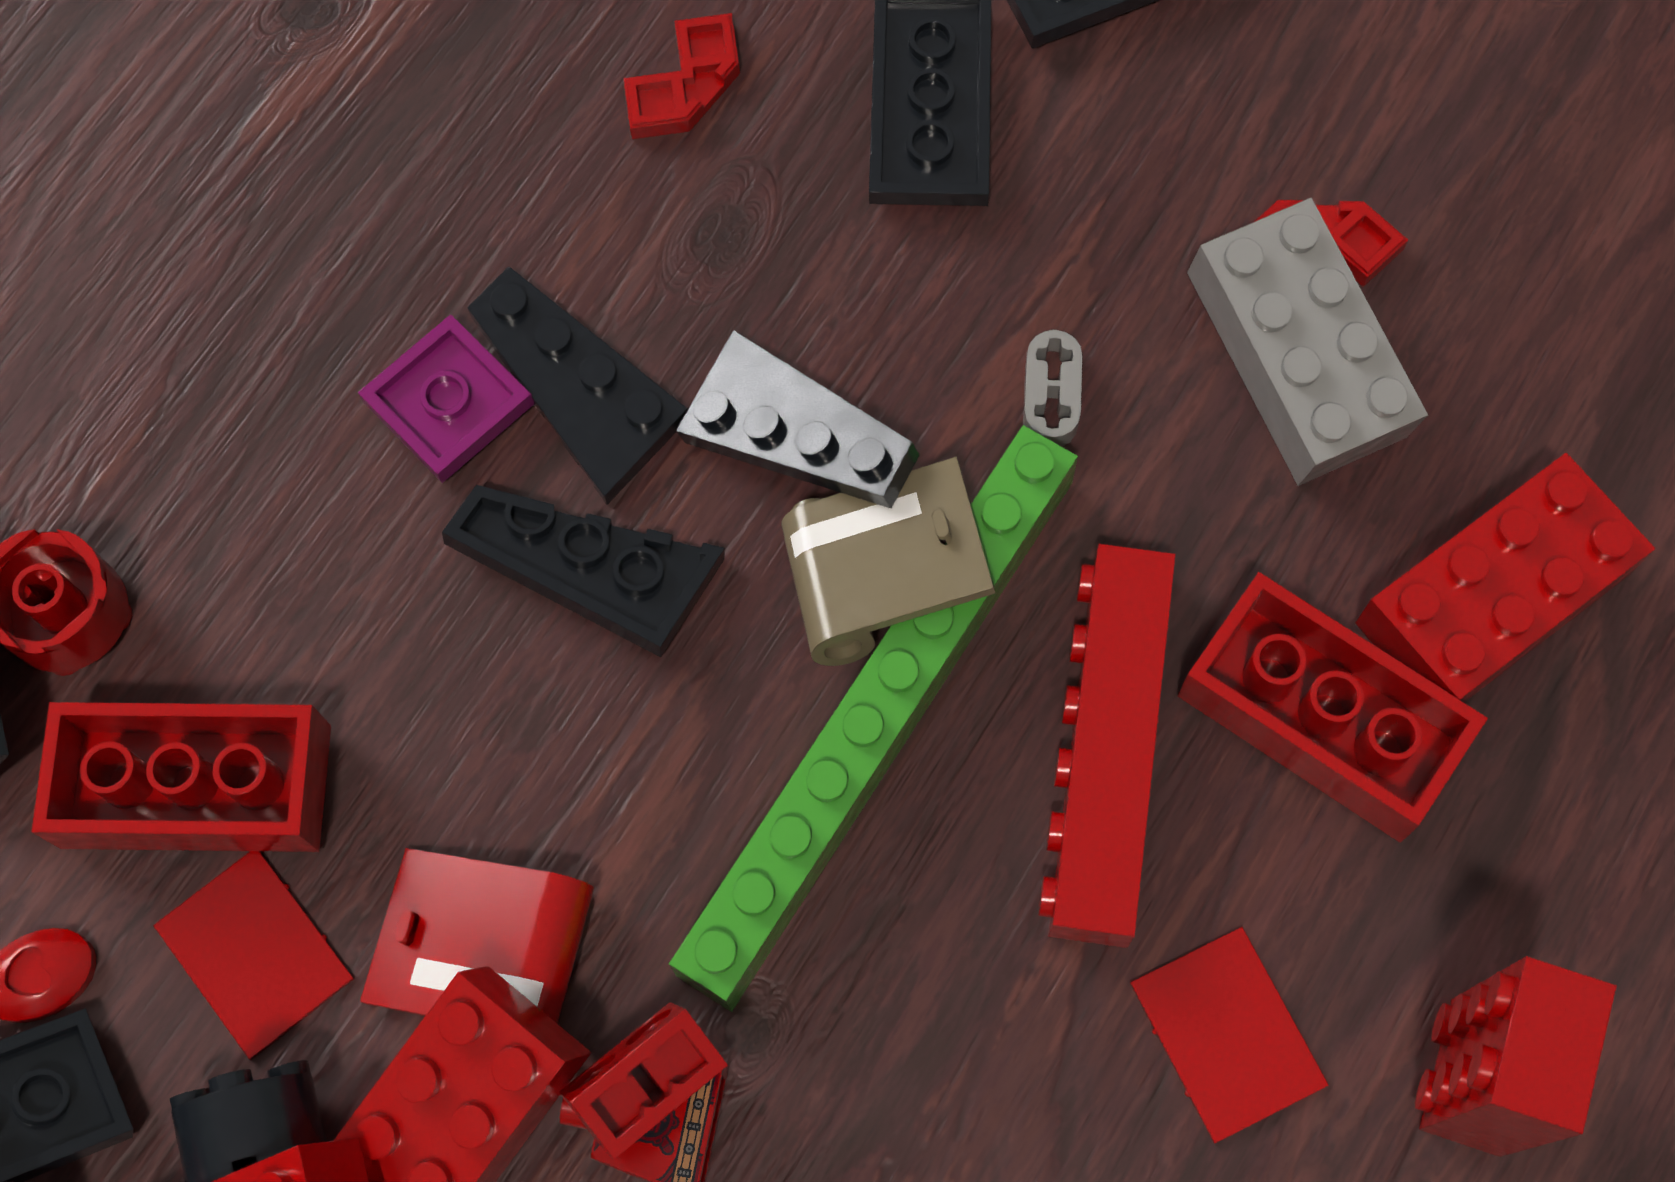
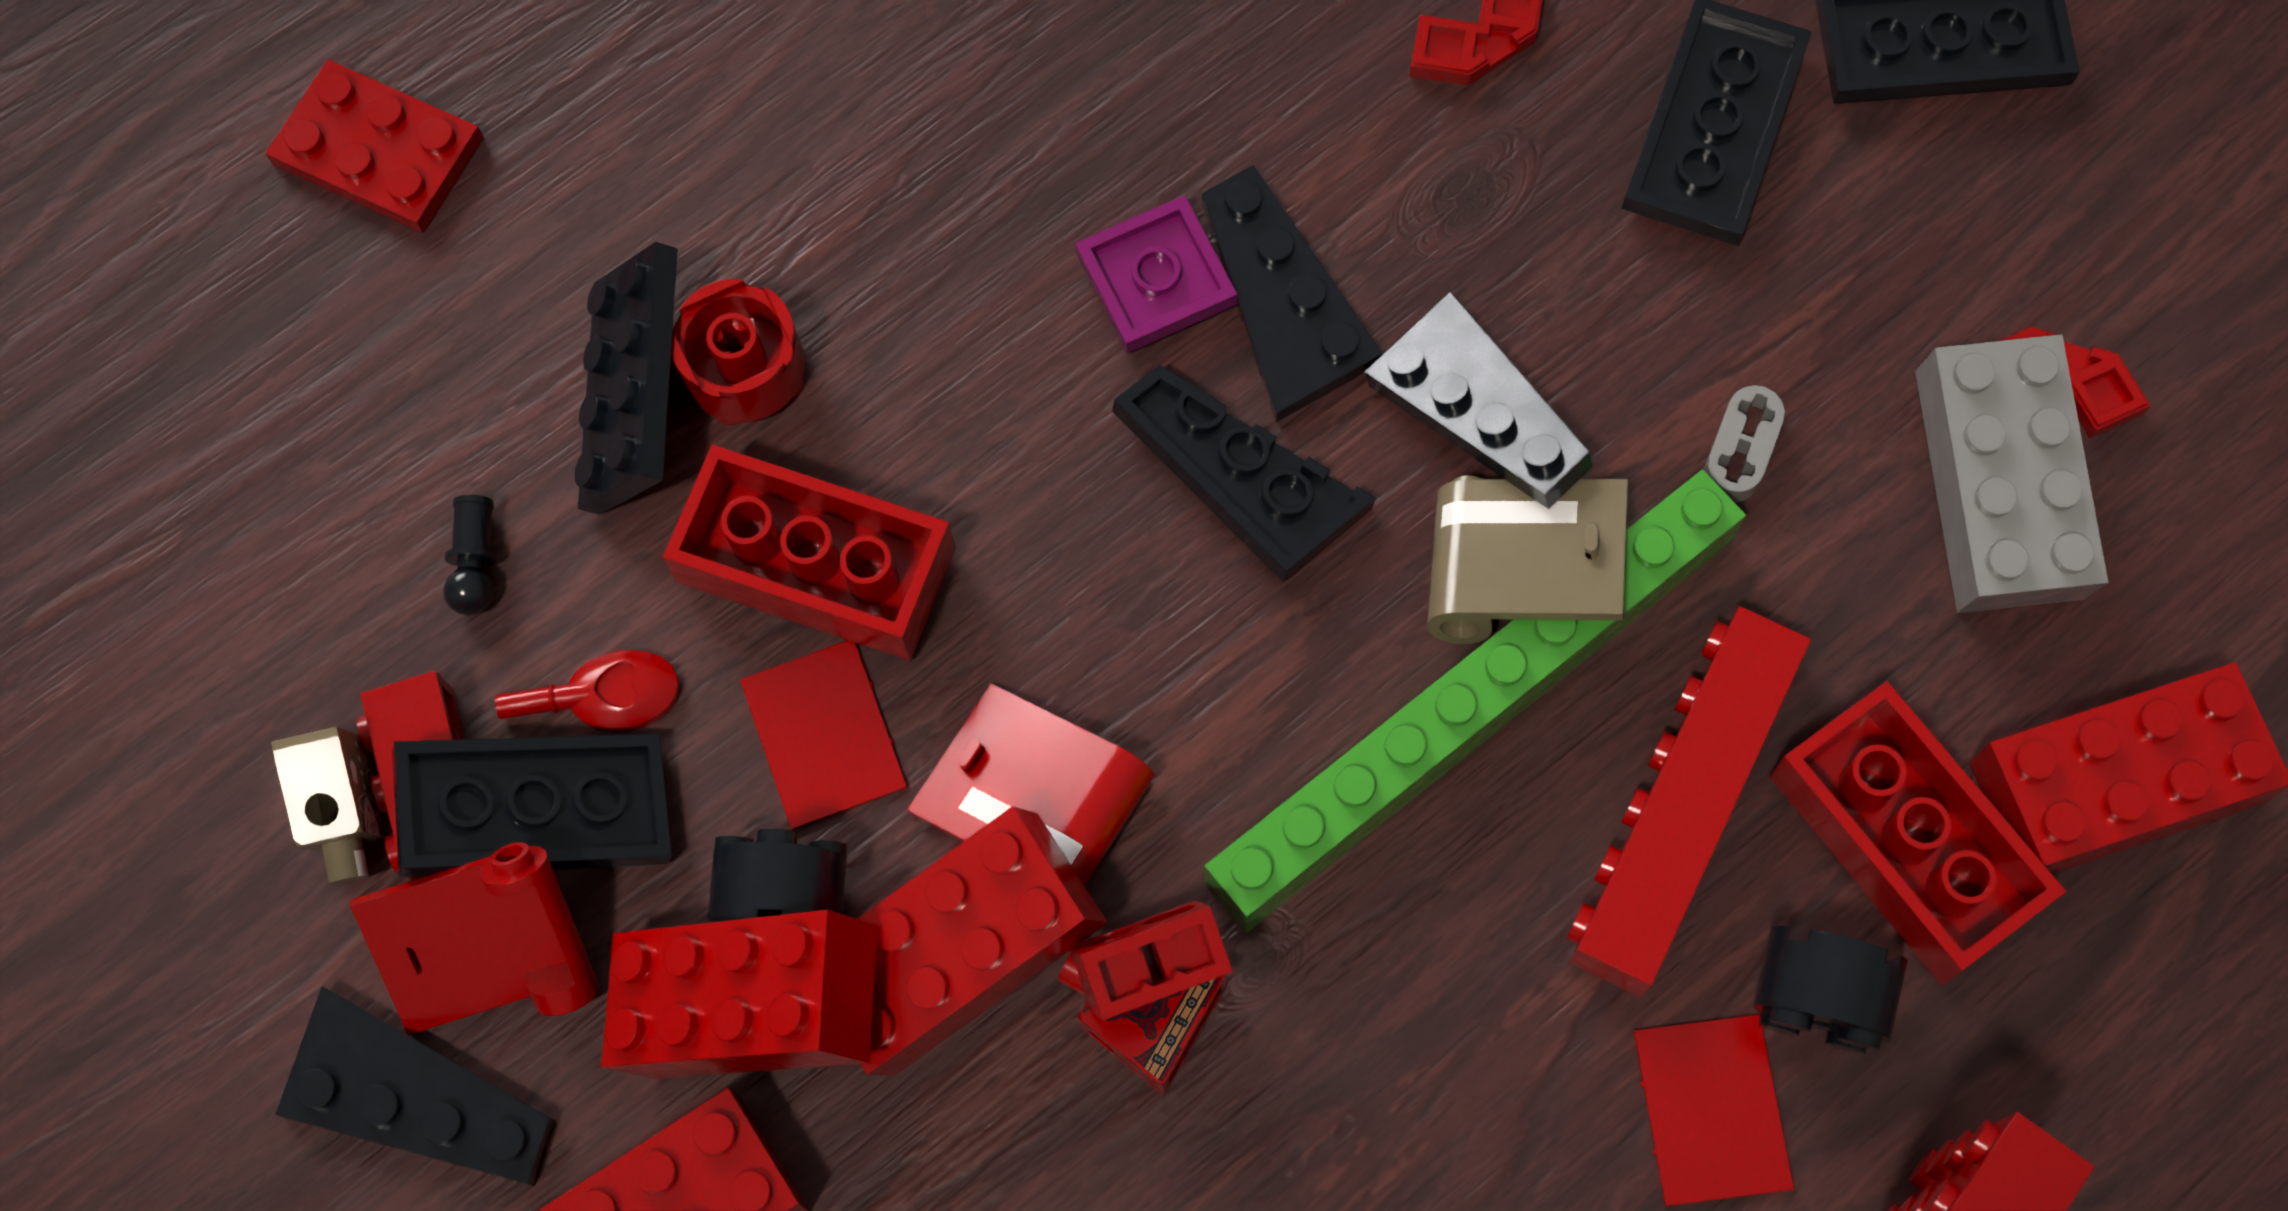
camera: 20 degrees right, 0 degrees up
(1300, 880) = (1830, 987): none -> black brick

